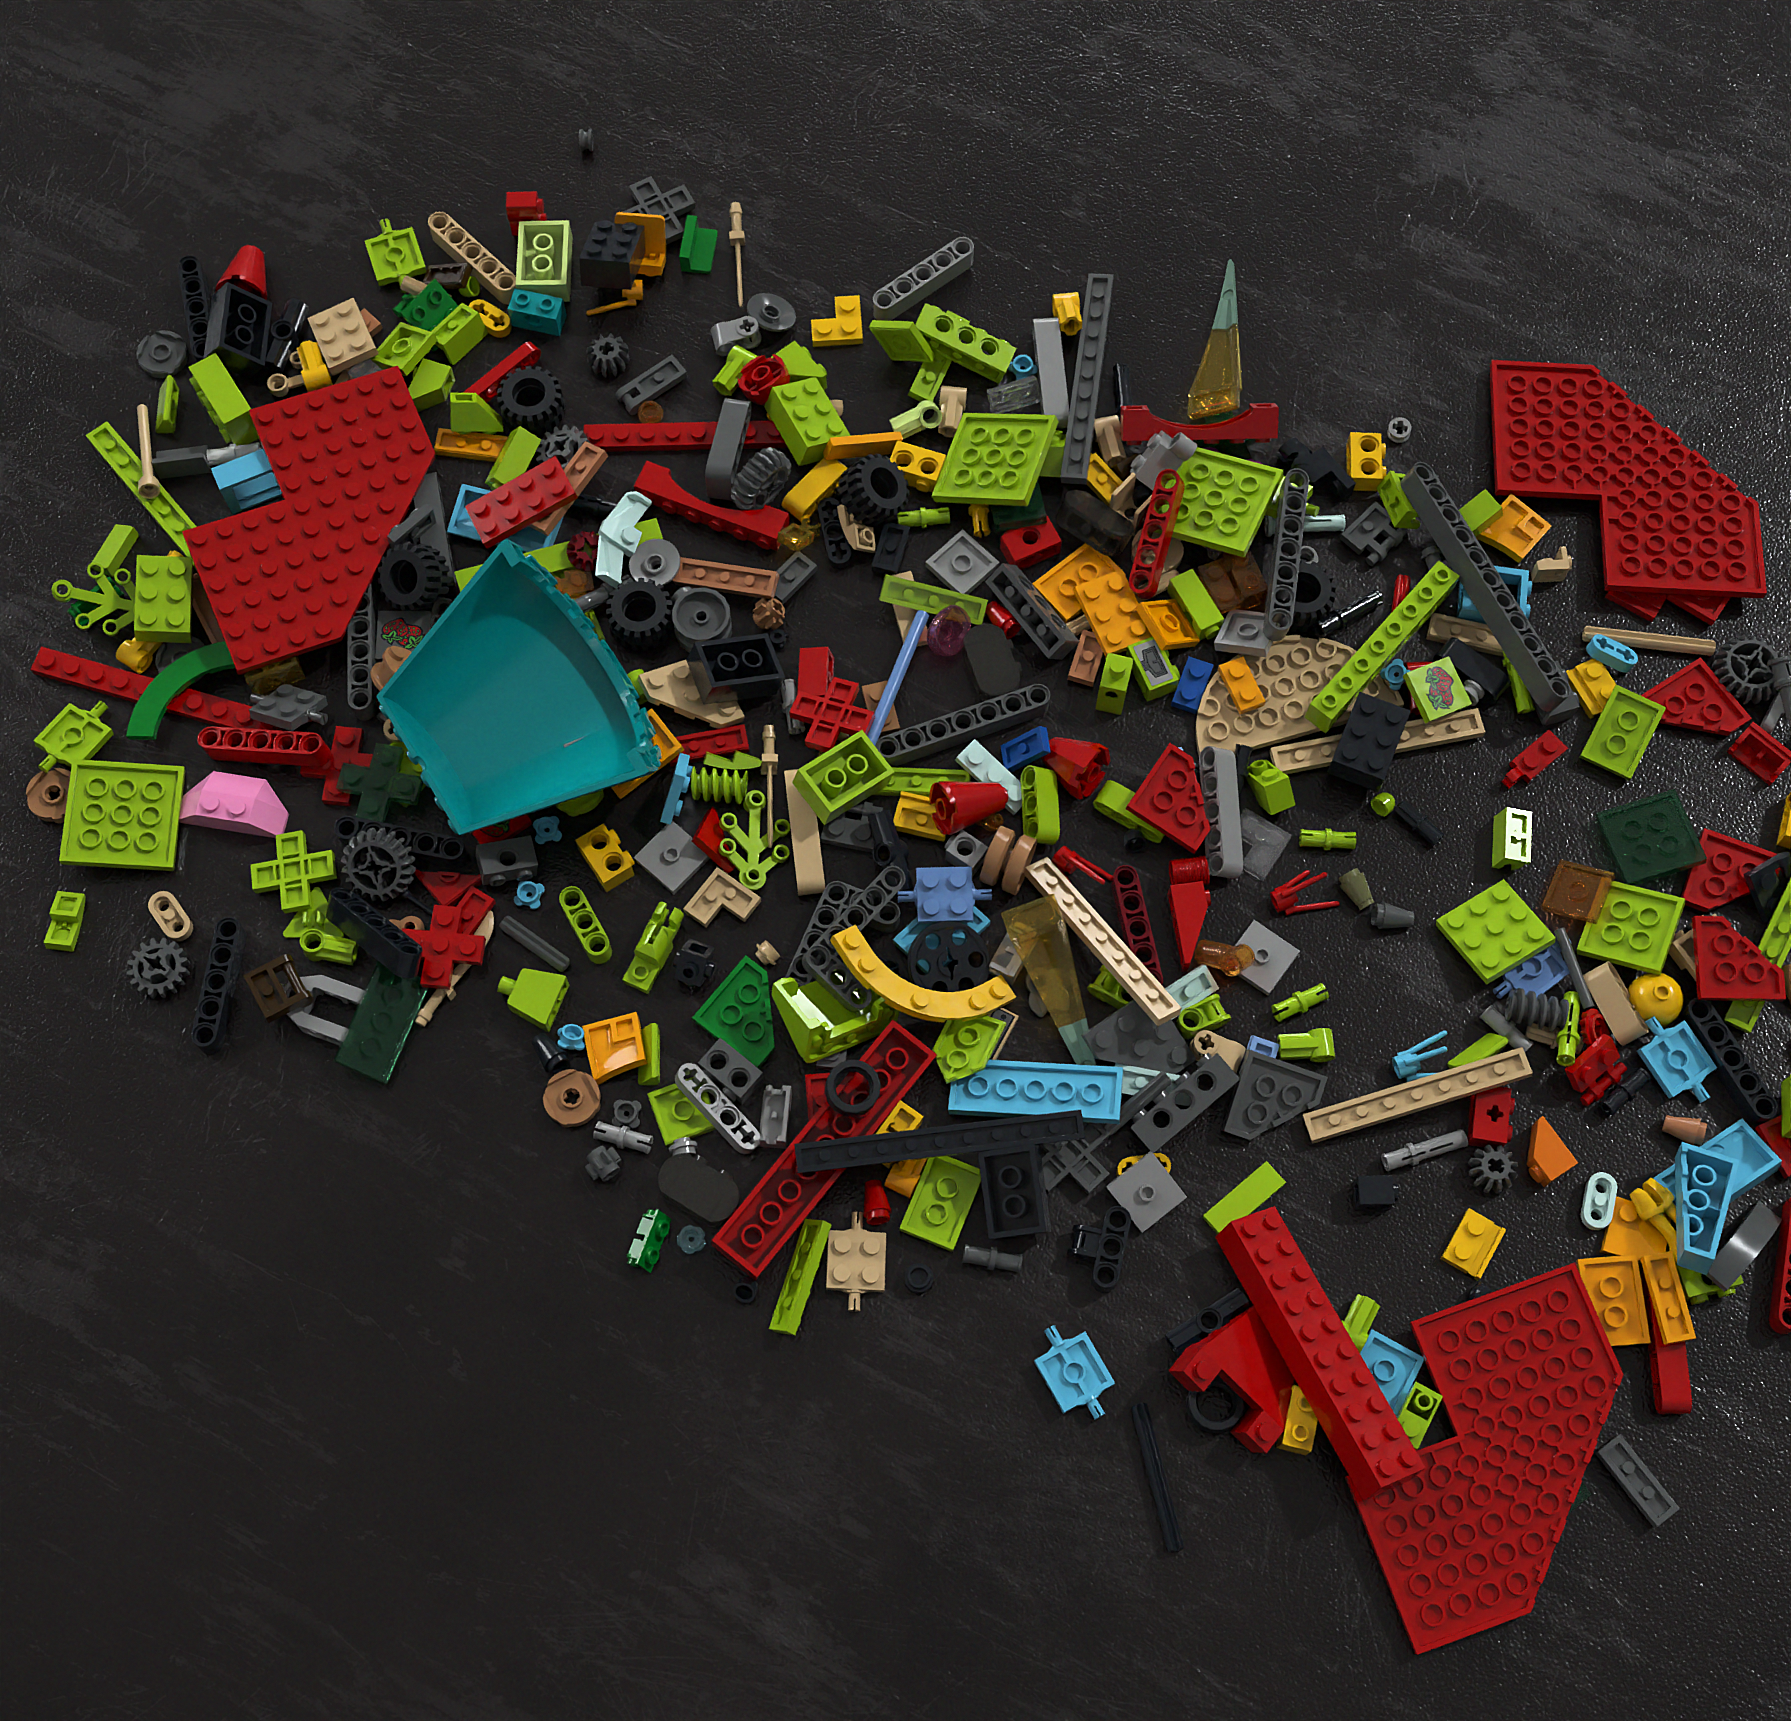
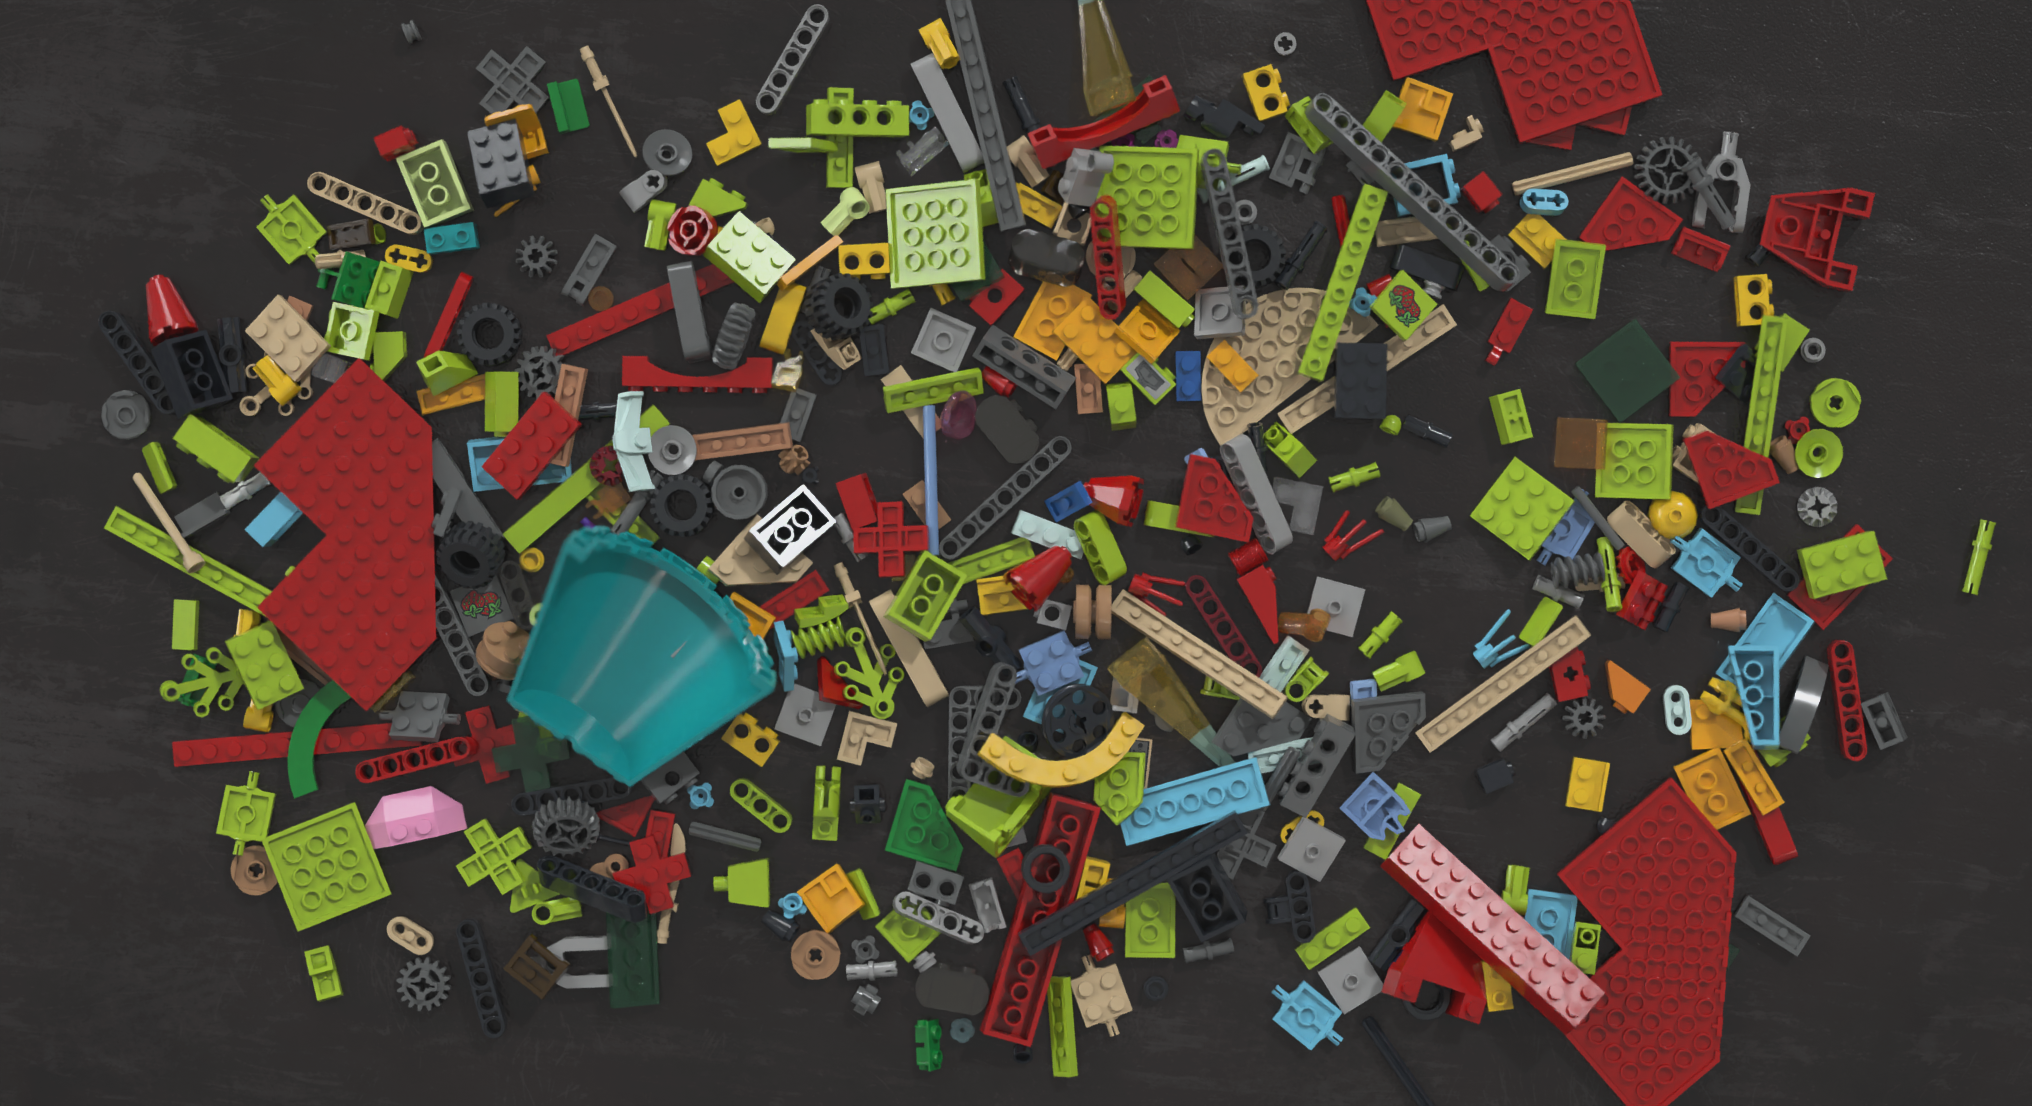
camera: 20 degrees left, 20 degrees up
(1133, 1300) = (1332, 938): none -> lime plate
(1137, 1354) = (1351, 980): none -> light grey plate
(1232, 1174) = (1375, 807): none -> medium blue plate
(1552, 616) = (1481, 193): none -> red brick

